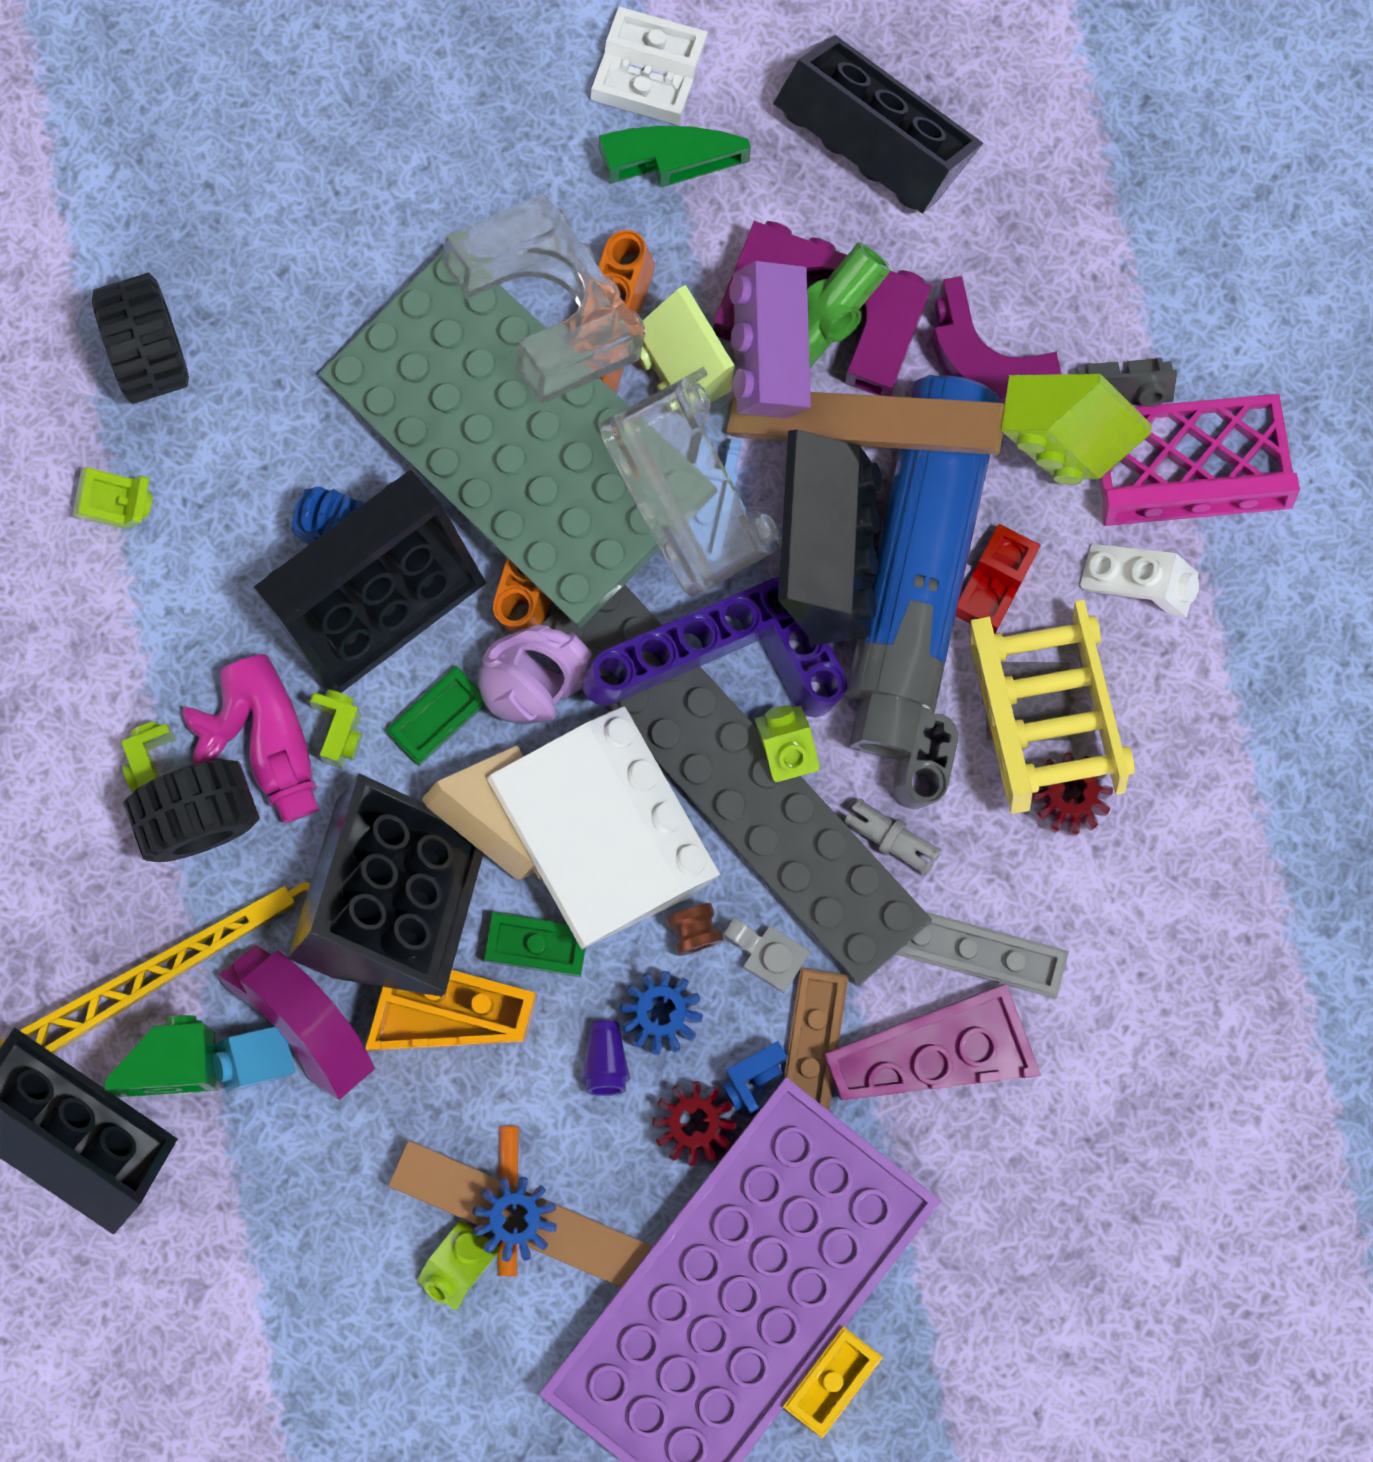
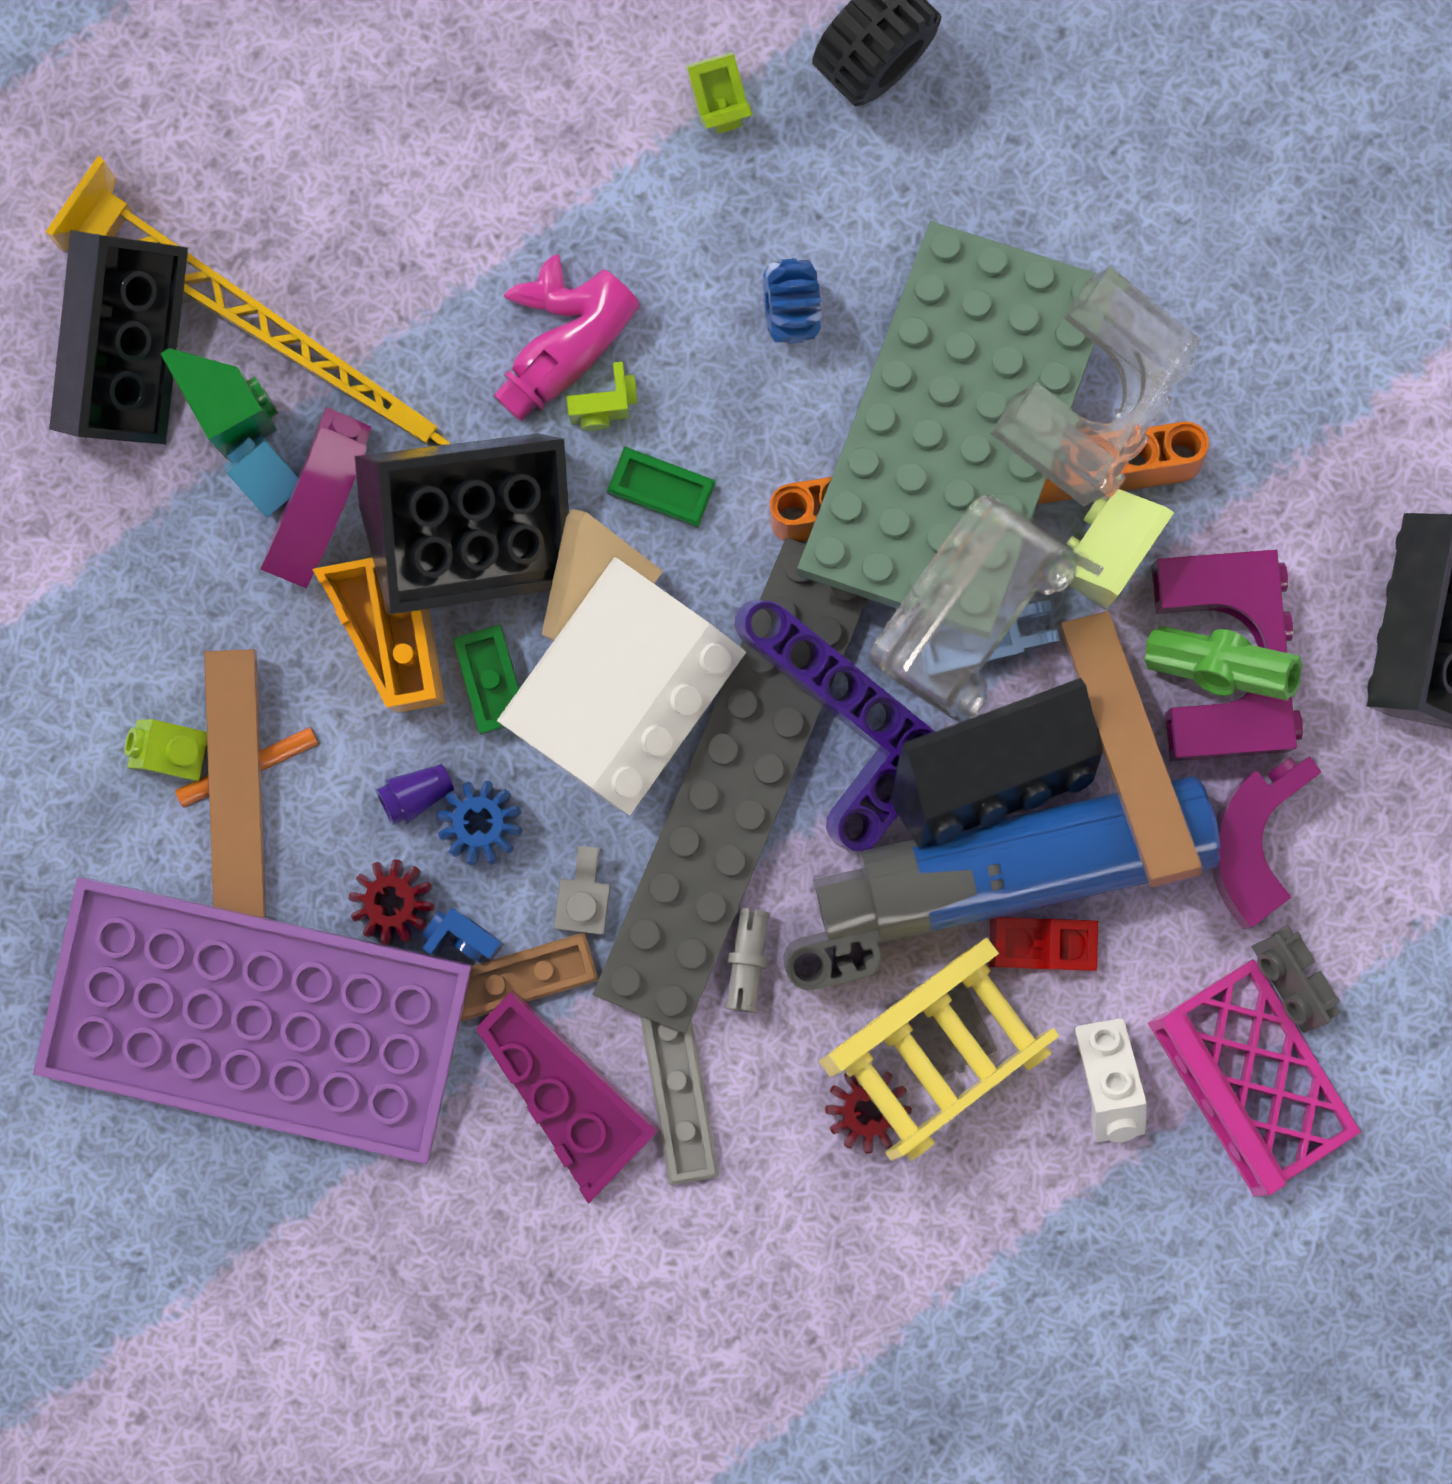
camera: 70 degrees right, 5 degrees up
(137, 747) = (480, 244): lime bracket -> none
(191, 810) = (457, 305): black tyre -> none
(371, 583) = (746, 362): black slope -> none
(521, 688) = (723, 547): lavender helmet -> none
(531, 1218) = (218, 762): blue gear -> none
(656, 47) = (1406, 373): white slope -> none
(671, 152) = (1308, 440): green slope -> none
(694, 929) = (572, 817): copper wheel -> none
(771, 339) = (1162, 619): medium lavender brick -> none
(787, 742) = (786, 819): lime bracket -> none
(832, 1382) = (214, 1141): yellow slope -> none
(1072, 424) = (1219, 943): lime slope -> none

